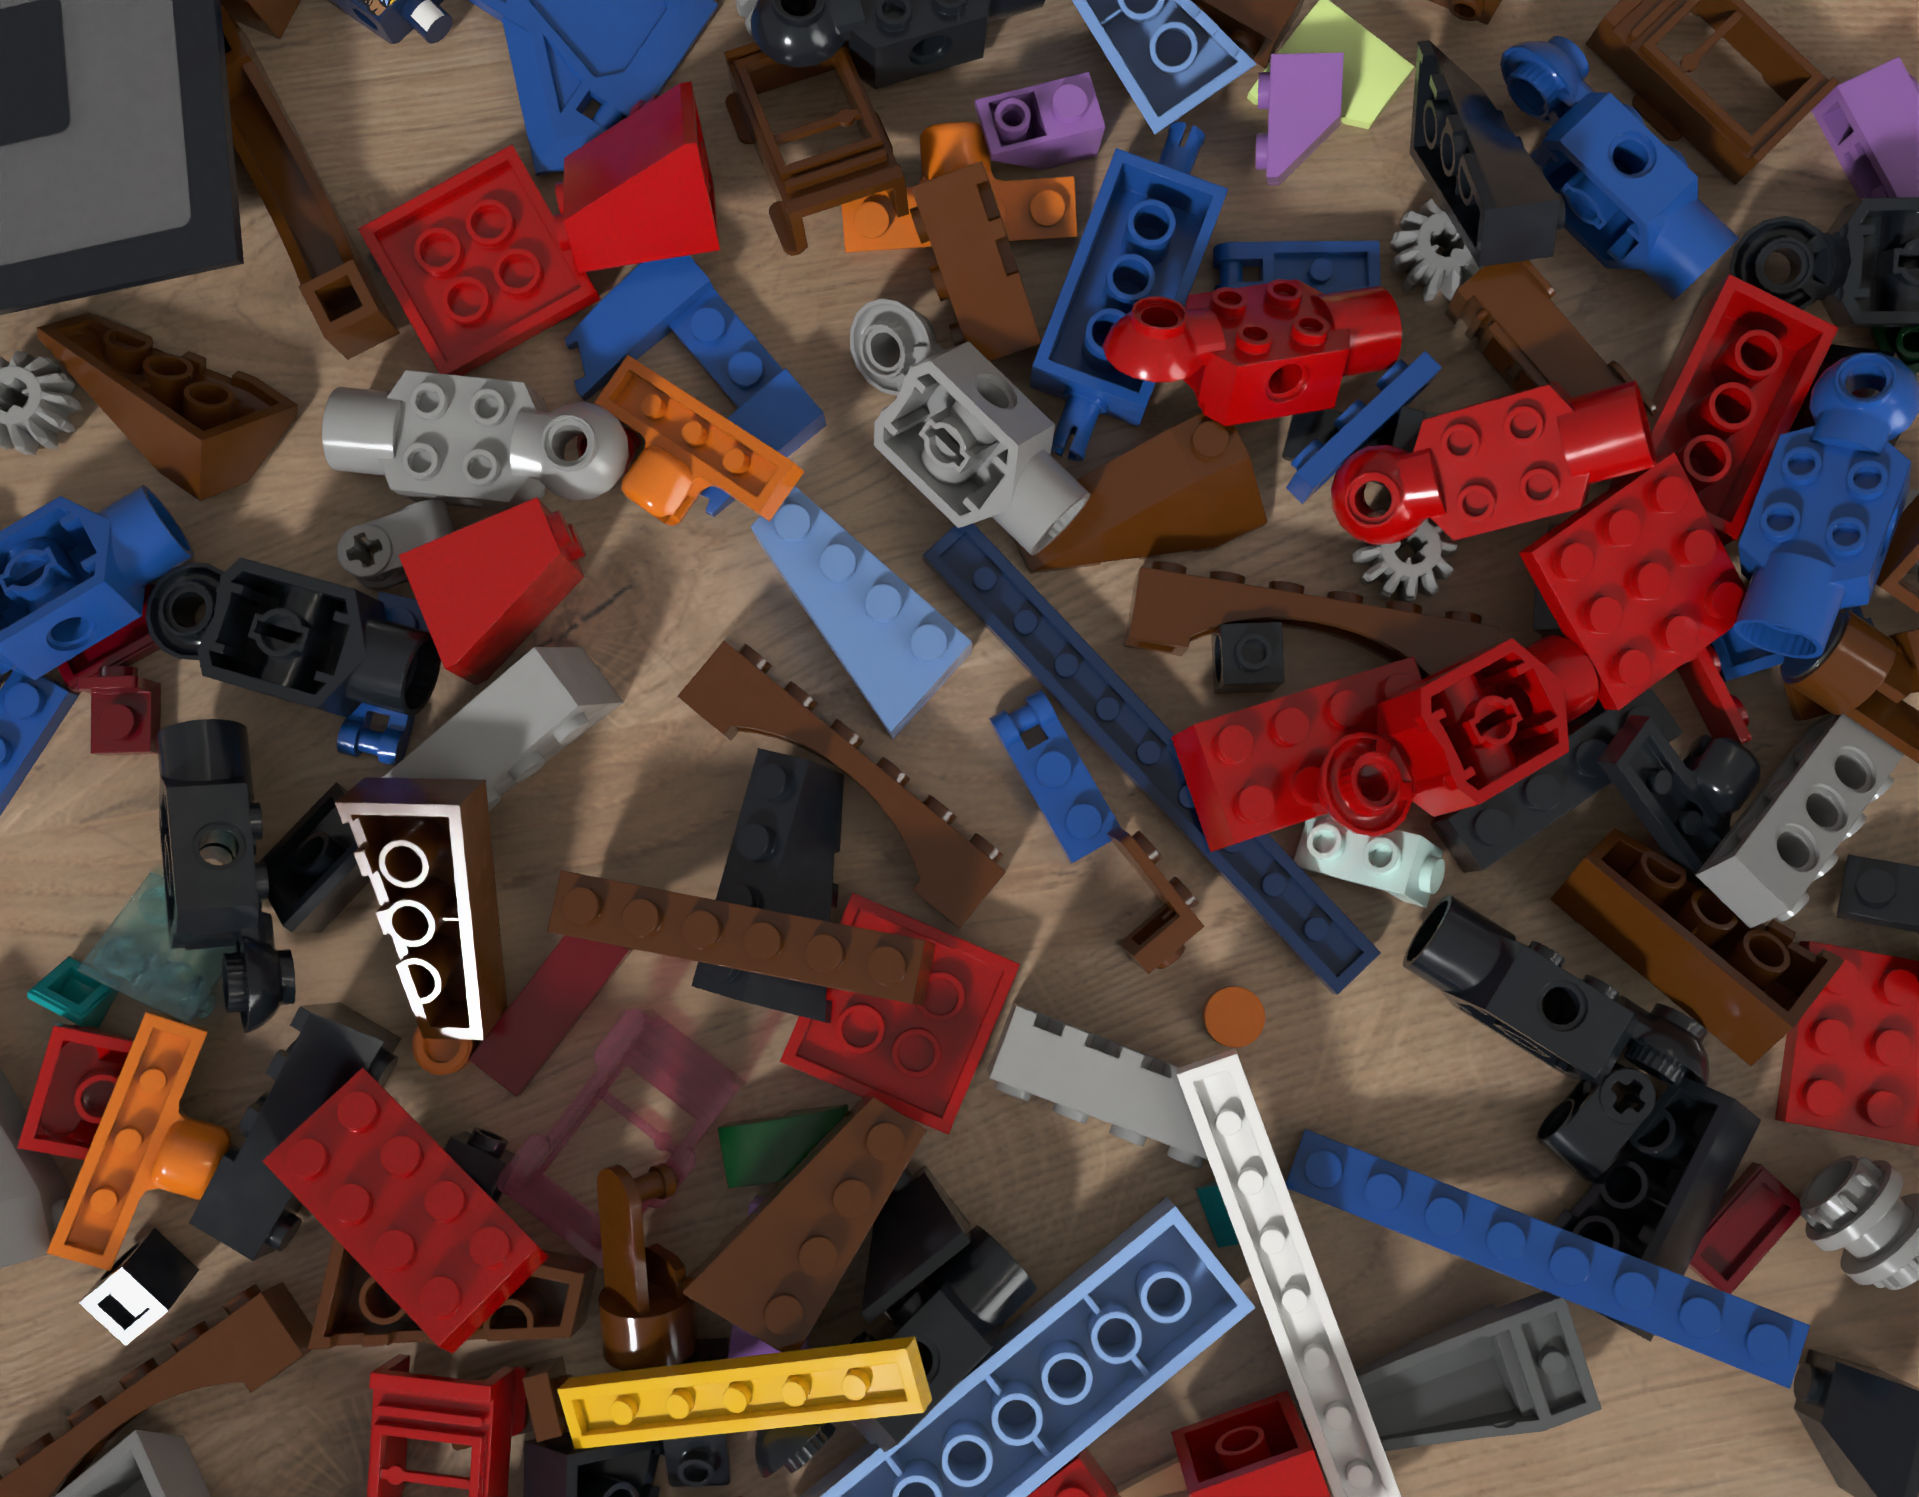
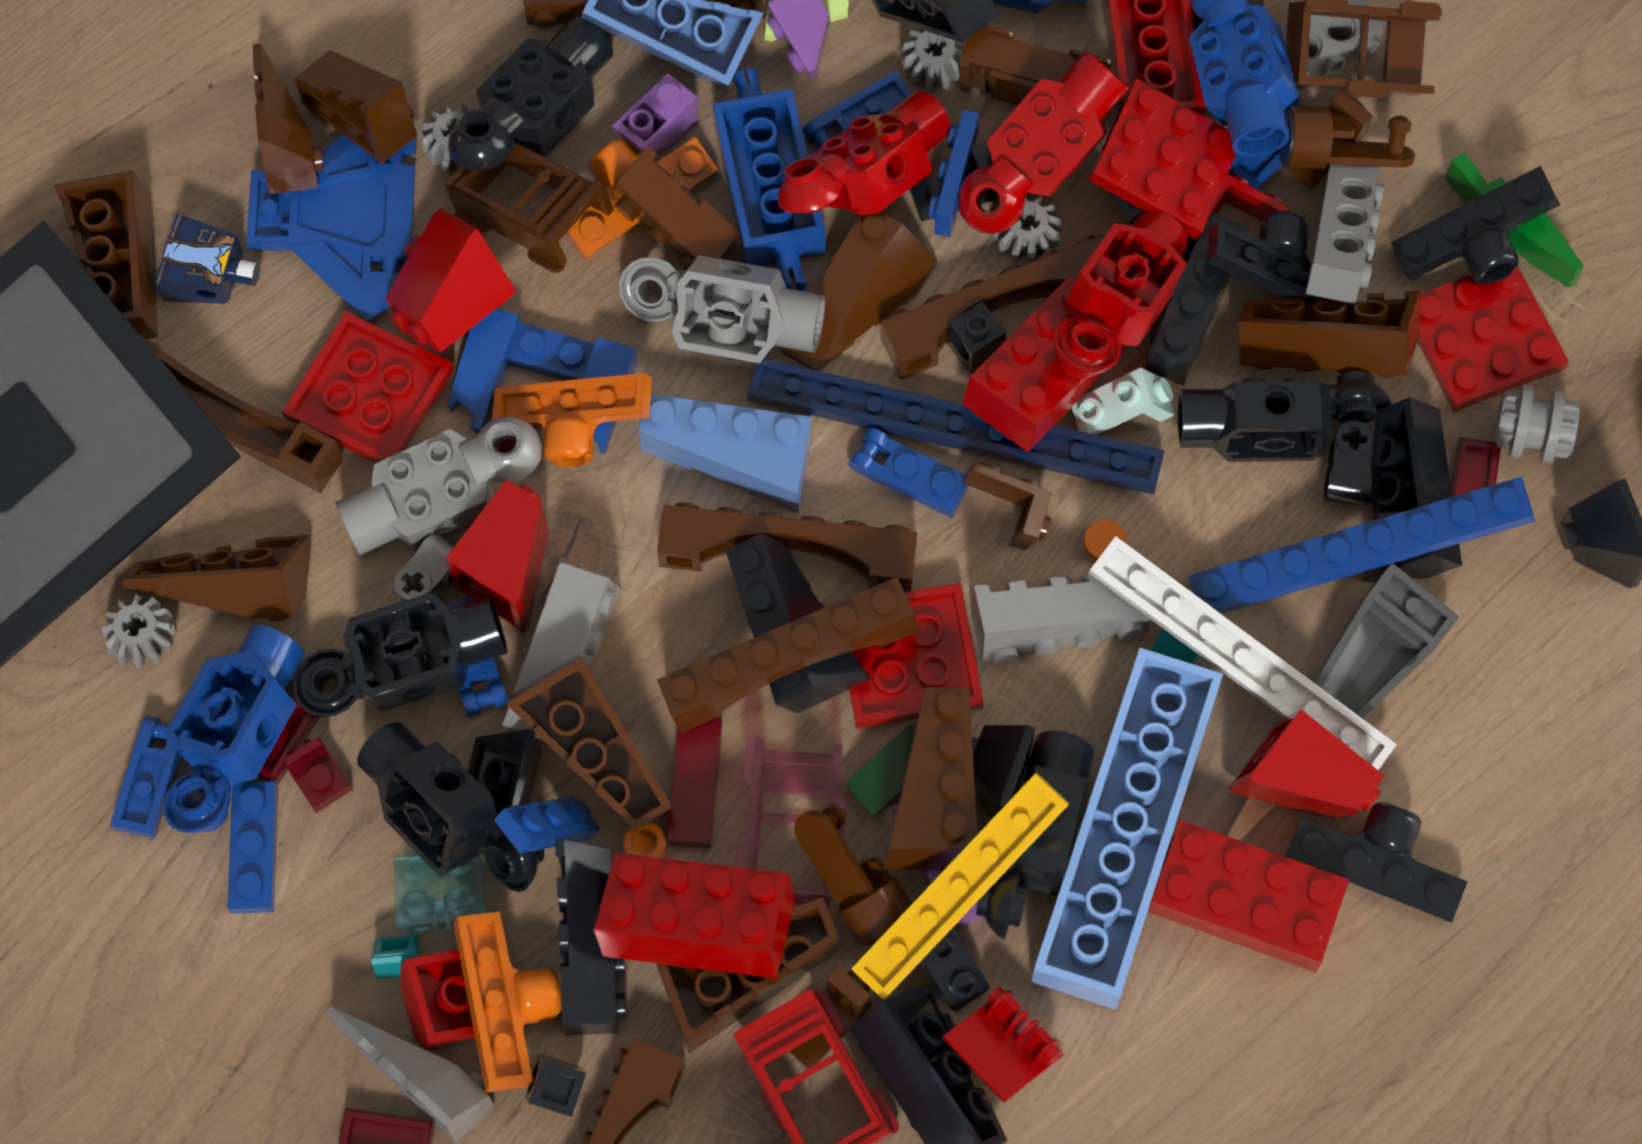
camera: 30 degrees left, 15 degrees down
(313, 967) = (541, 823): none -> blue plate

